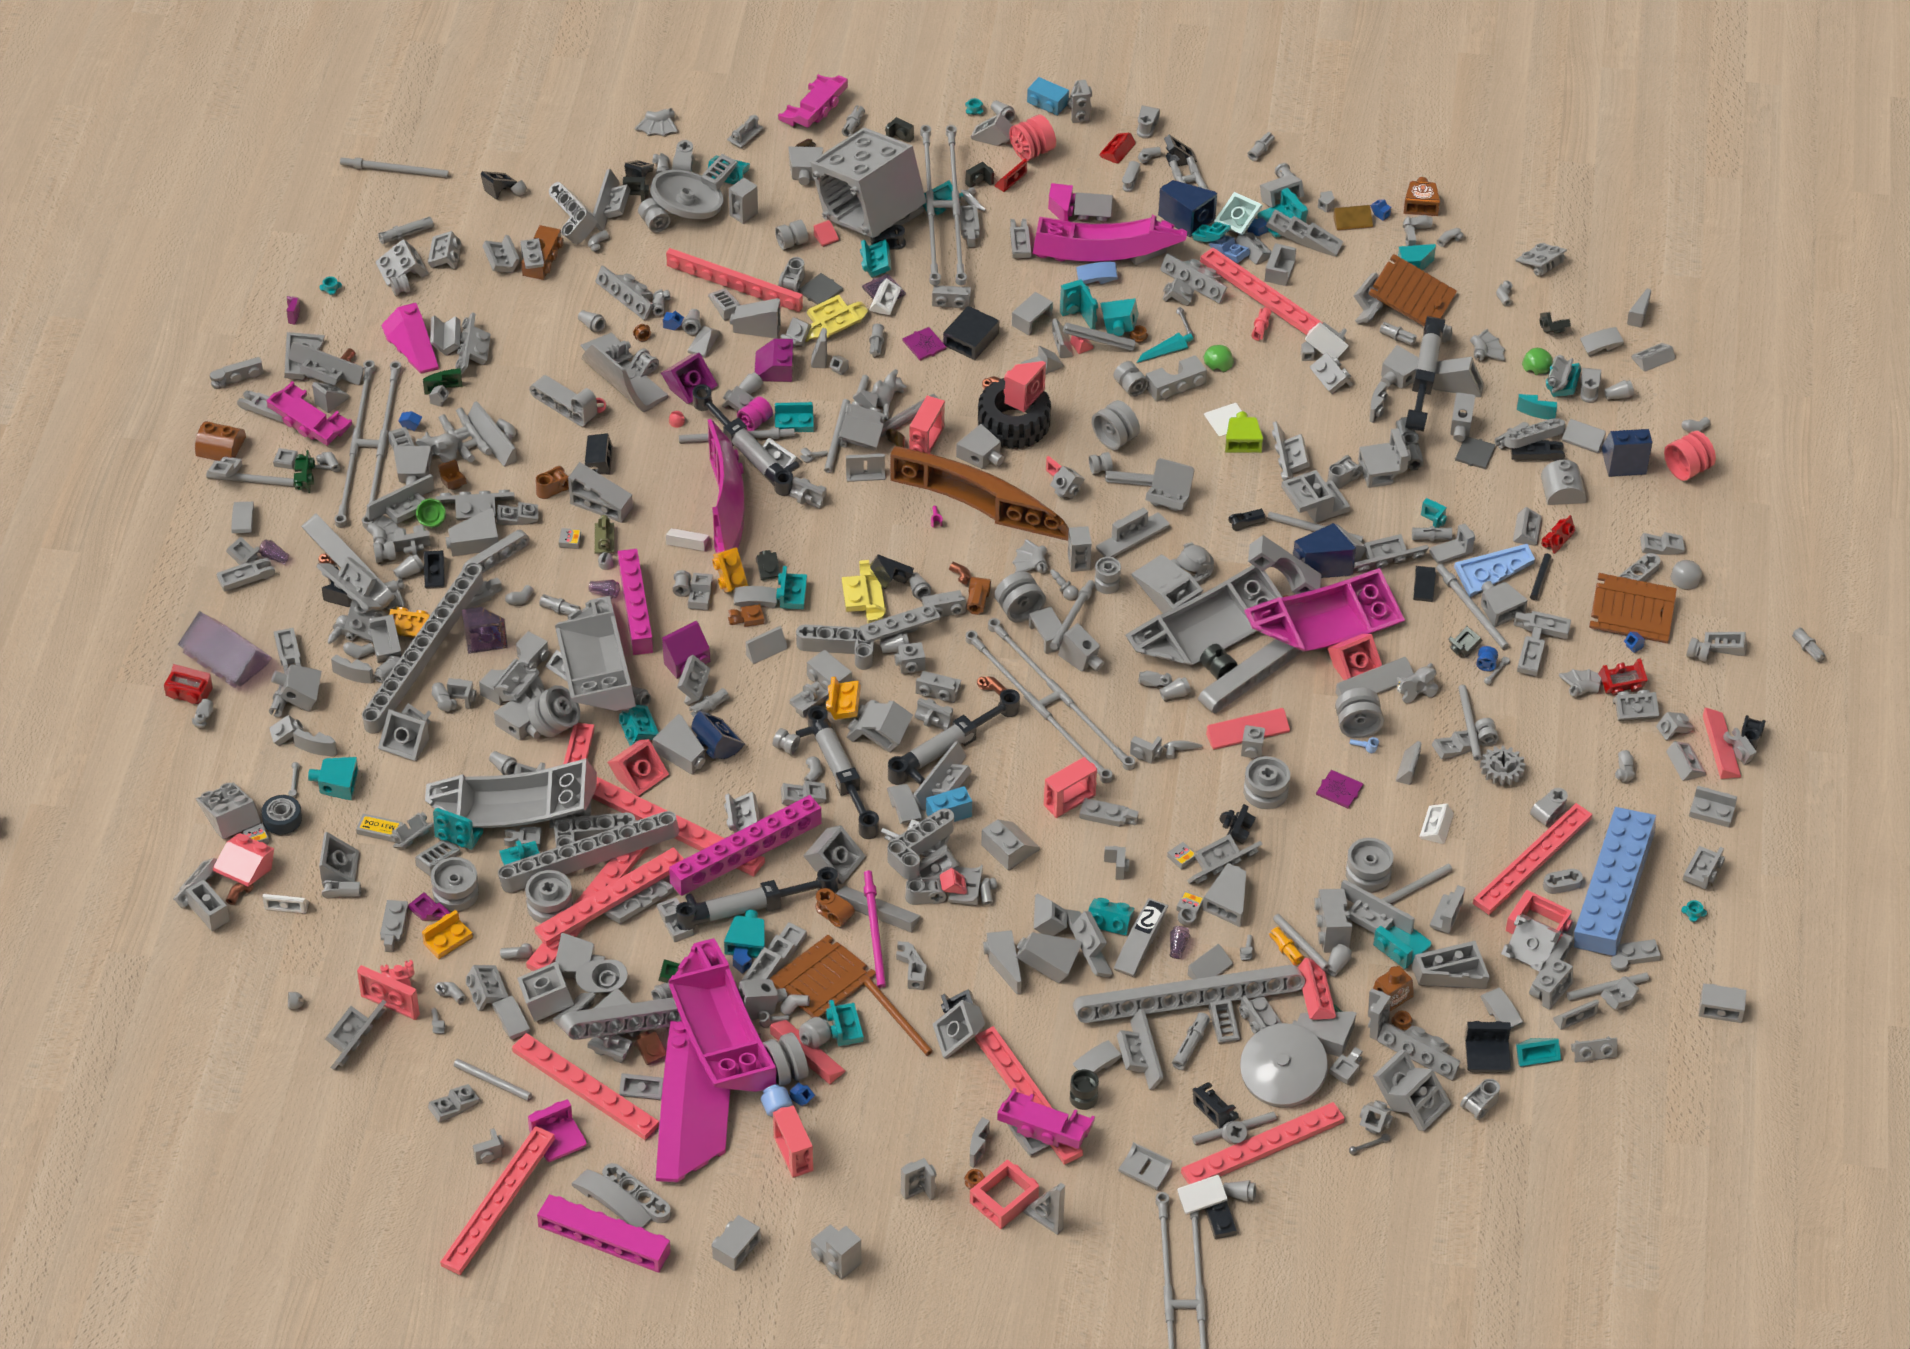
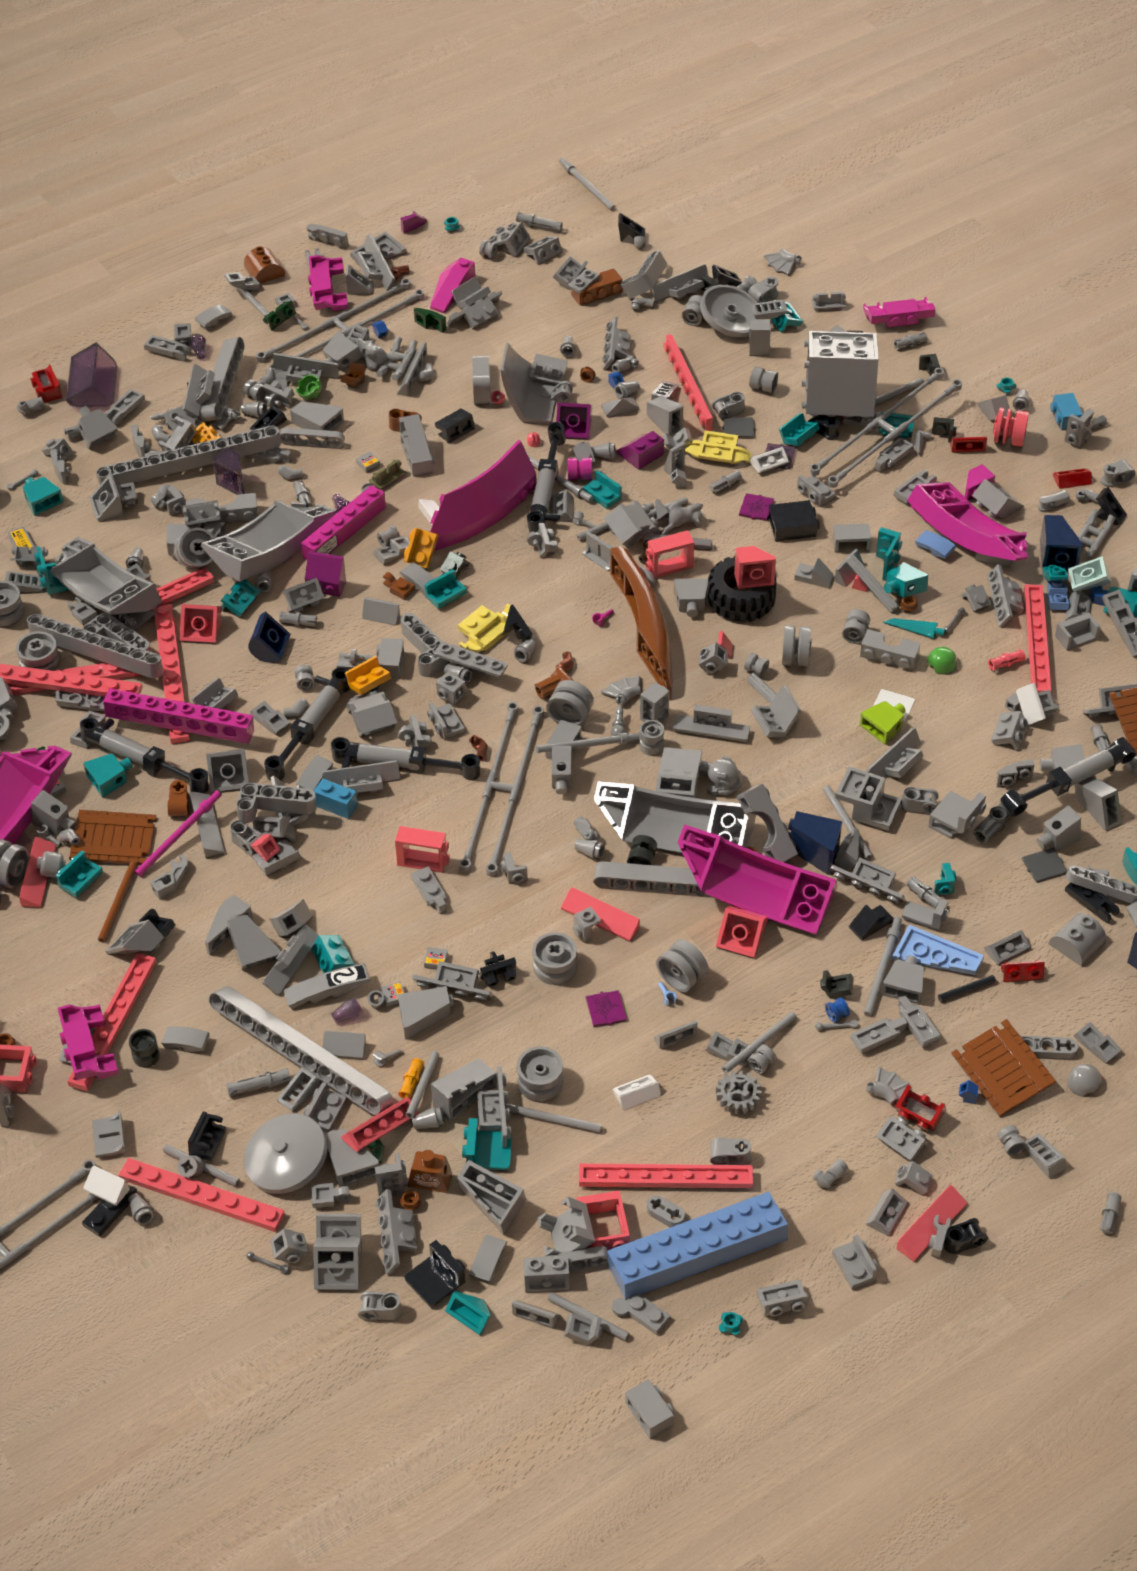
camera: 50 degrees right, 0 degrees up
(328, 458) = (303, 318): light grey arm -> none
(438, 395) = (416, 326): light grey piece -> none
(472, 504) = (341, 398): light grey bracket -> none
(518, 852) = (59, 613): teal hips -> none
(520, 515) = (358, 425): light grey slope -> none
(680, 746) = (240, 628): light grey slope -> none
(741, 960) = (85, 785): blue piece -> none
(777, 954) = (107, 800): light grey slope -> none
(825, 233) = (790, 395): coral slope -> none
(947, 603) = (525, 673): light grey bracket -> none
(977, 1145) = (32, 1023): light grey slope -> none
(985, 890) = (283, 869): light grey arm -> none
(1007, 843) = (340, 852): light grey slope -> none
(1116, 855) = (386, 926): light grey bracket -> none
(1139, 1050) = (214, 1054): light grey bracket -> none
(1179, 745) = (540, 886): light grey bar -> none
(1246, 519) = (805, 778): black bar -> none
(1378, 679) = (737, 958): light grey slope -> none
(1420, 682) = (766, 985): light grey animal -> none
(1448, 910) = (550, 1156): light grey bracket -> none
(1595, 1049) = (505, 1346): light grey hinge -> none

